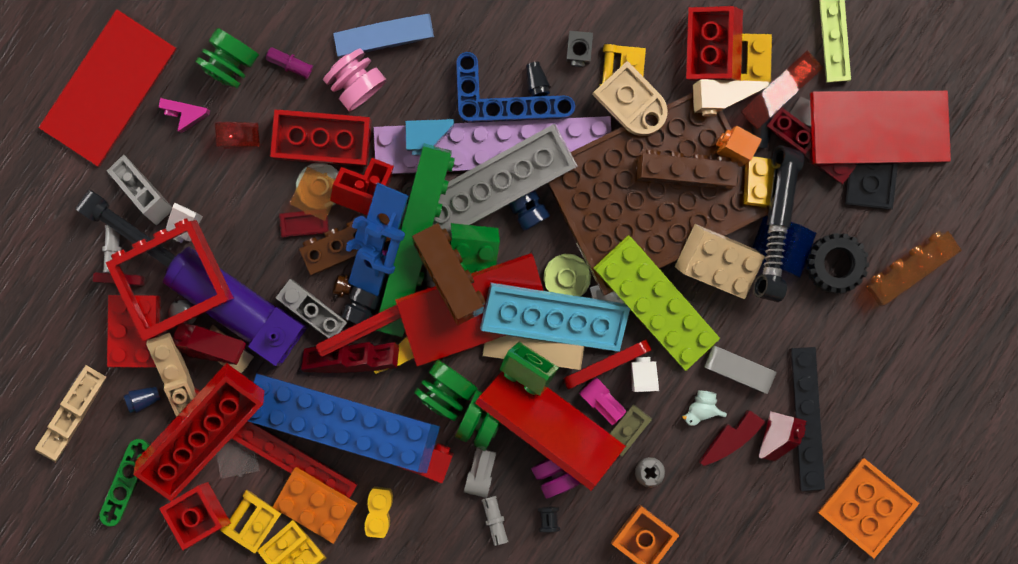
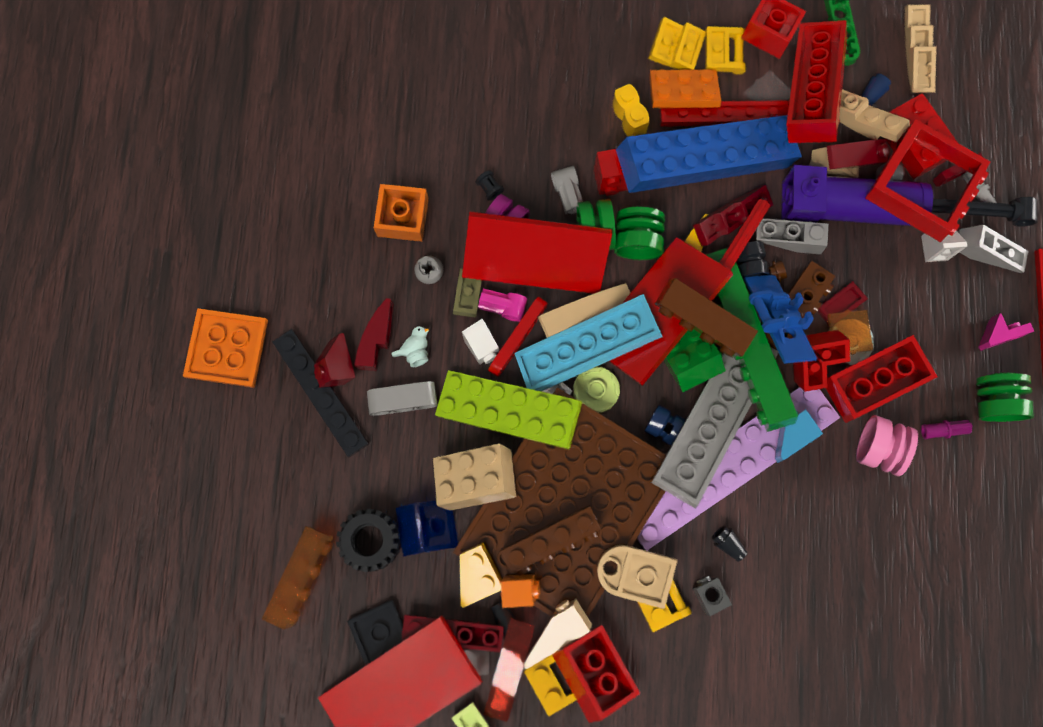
camera: 145 degrees right, 10 degrees down
(237, 135) = (949, 340): clear red slope -> none
(384, 34) = (885, 503): medium blue slope -> none
(495, 520) = (532, 159): light grey pin -> none
(504, 104) = (743, 504): blue beam -> none
(528, 368) = (583, 288): green slope -> none
(786, 165) = (464, 600): black piece -> none

